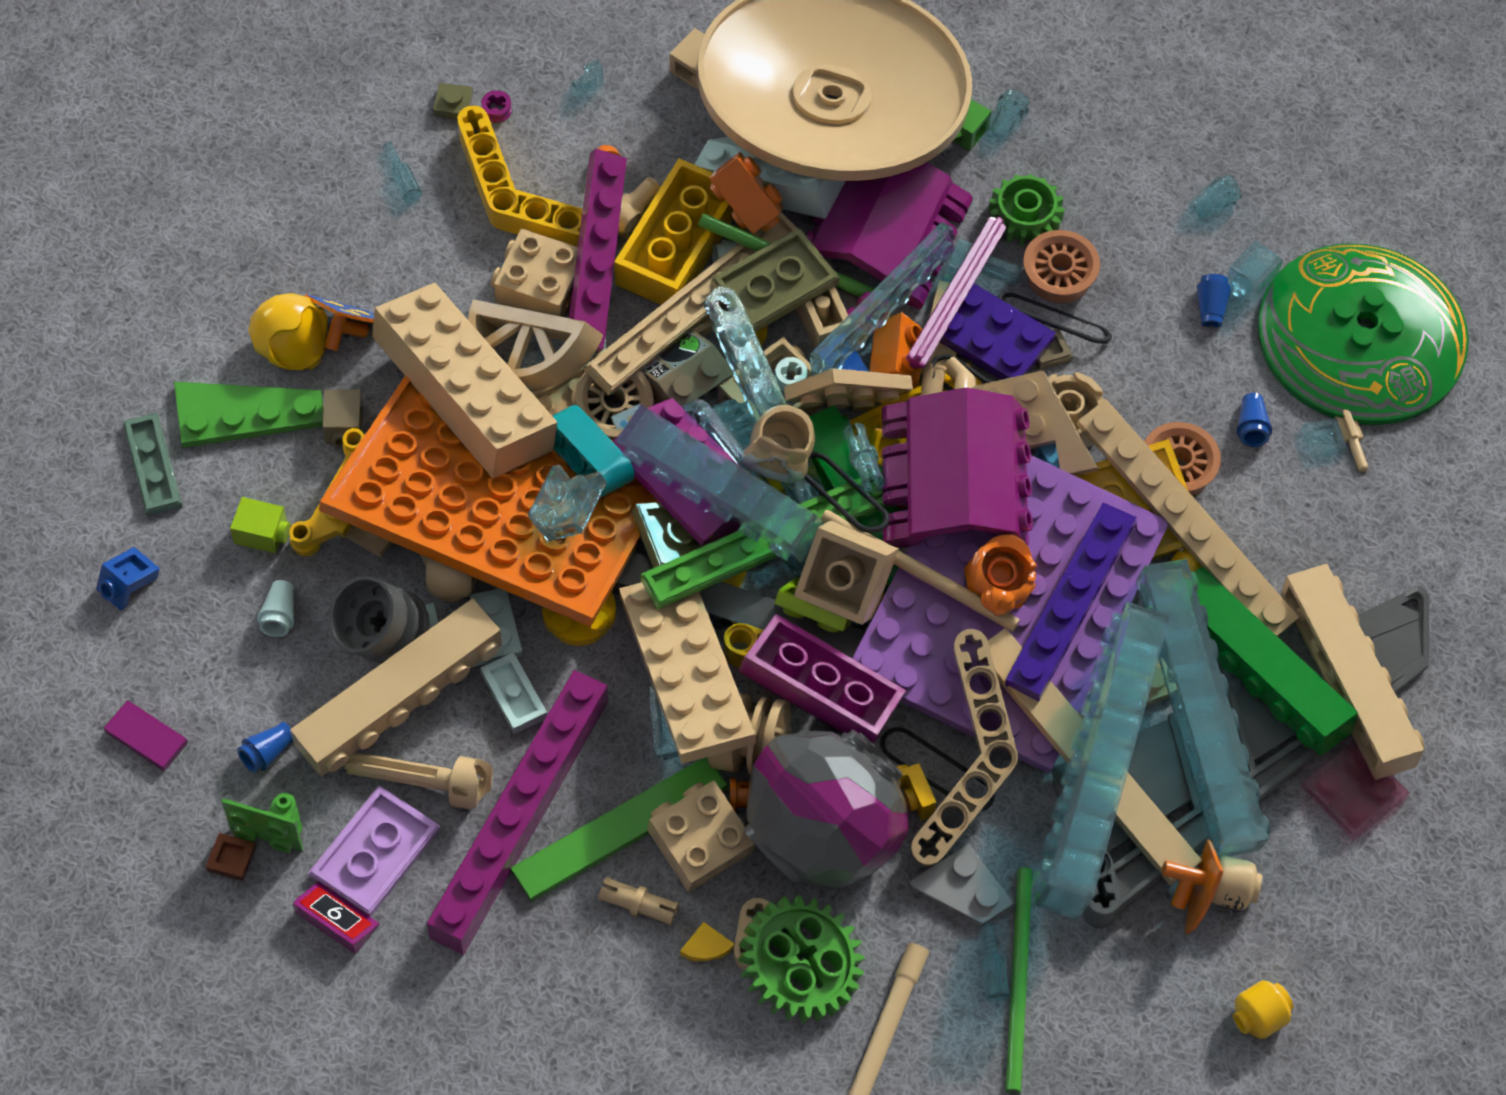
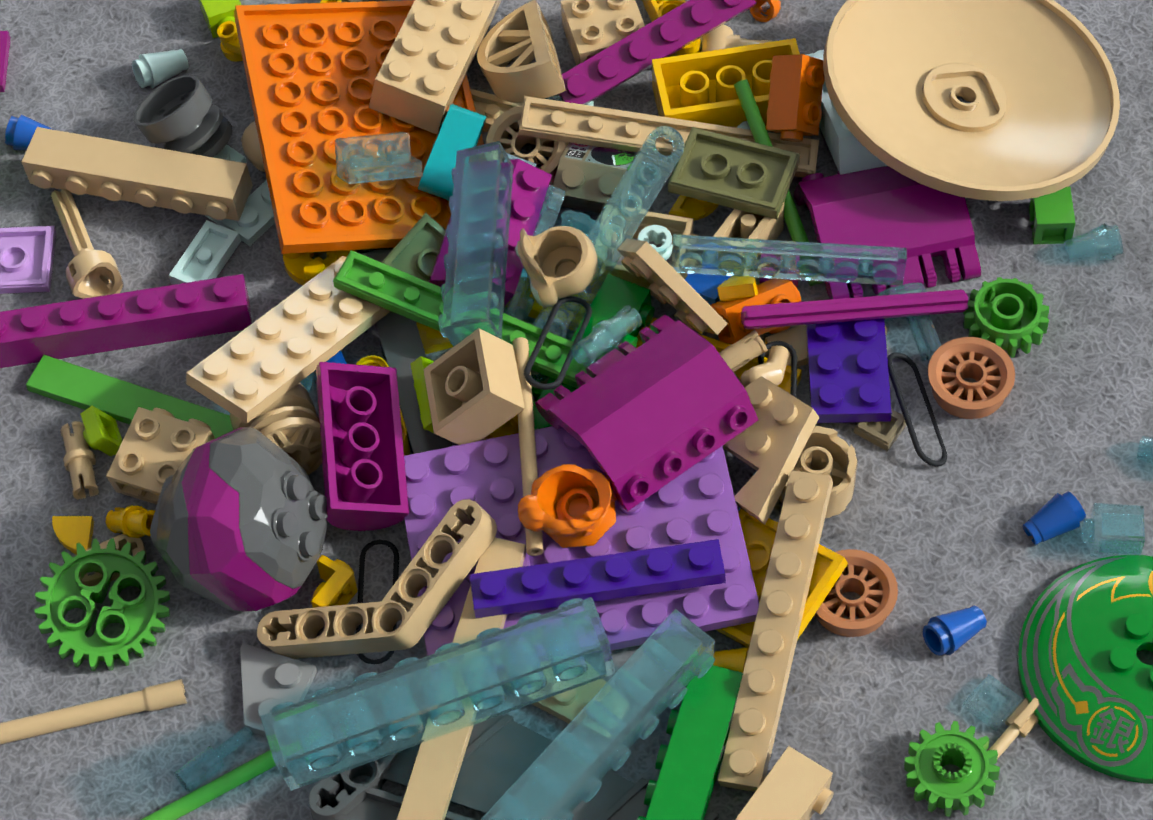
camera: 60 degrees right, 5 degrees down
(629, 868) = (101, 431): none -> lime plate
(746, 889) = (131, 521): none -> yellow pin
(877, 349) = (737, 288): none -> yellow tile
(1353, 510) = (947, 789): none -> bright green gear

